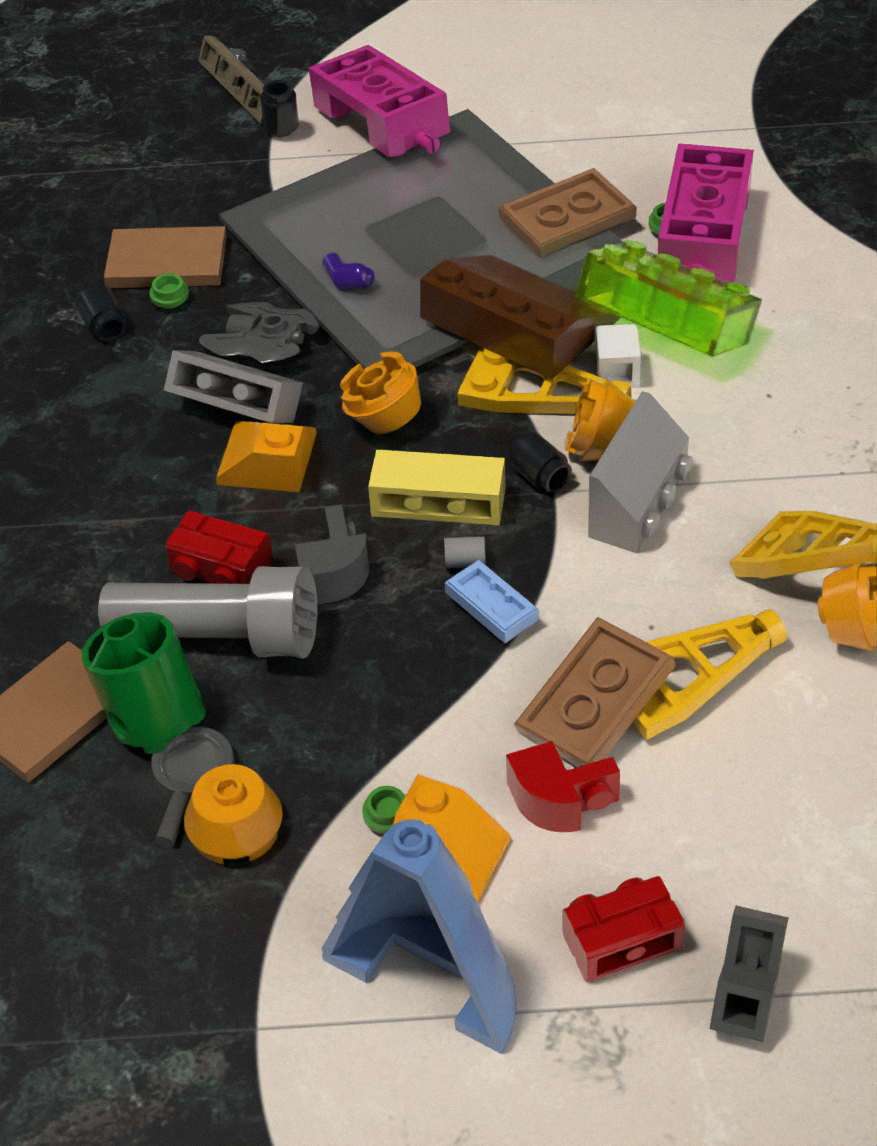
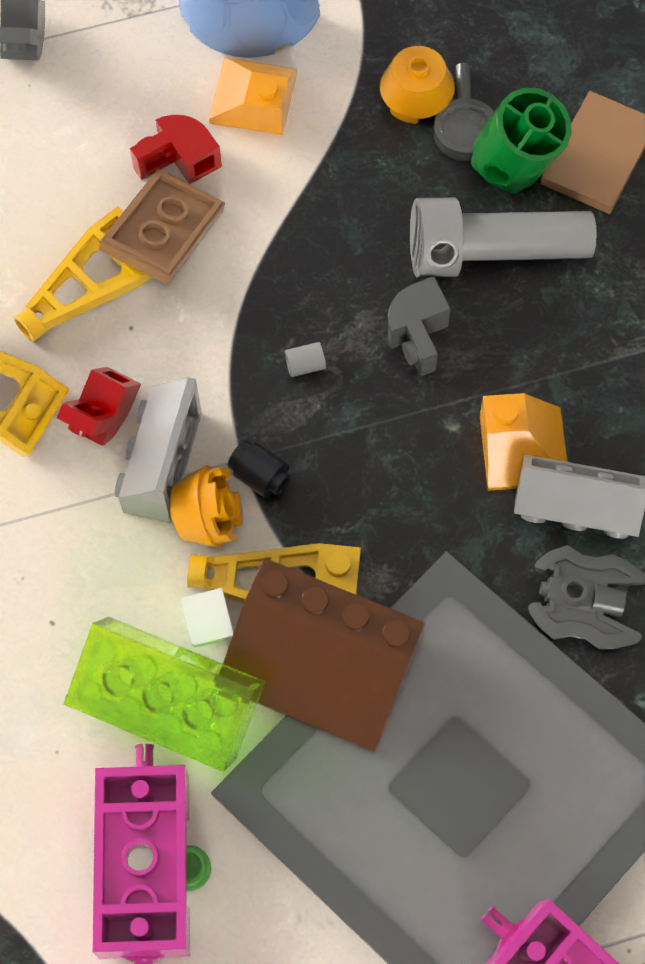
camera: 165 degrees right, 20 degrees up
(216, 550) = (520, 311): red brick -> none
(349, 275) = (523, 681): dark purple arm -> none
(381, 808) = (304, 116): bright green plate -> none
(382, 394) = (430, 505): light orange cone -> none
(437, 487) = (347, 420): light yellow brick -> none
(491, 601) = (269, 312): light blue plate -> none
(567, 212) = (303, 845): medium nougat tile -> none
(622, 927) = (113, 54): red brick -> none
(703, 529) = (101, 406): none -> red brick

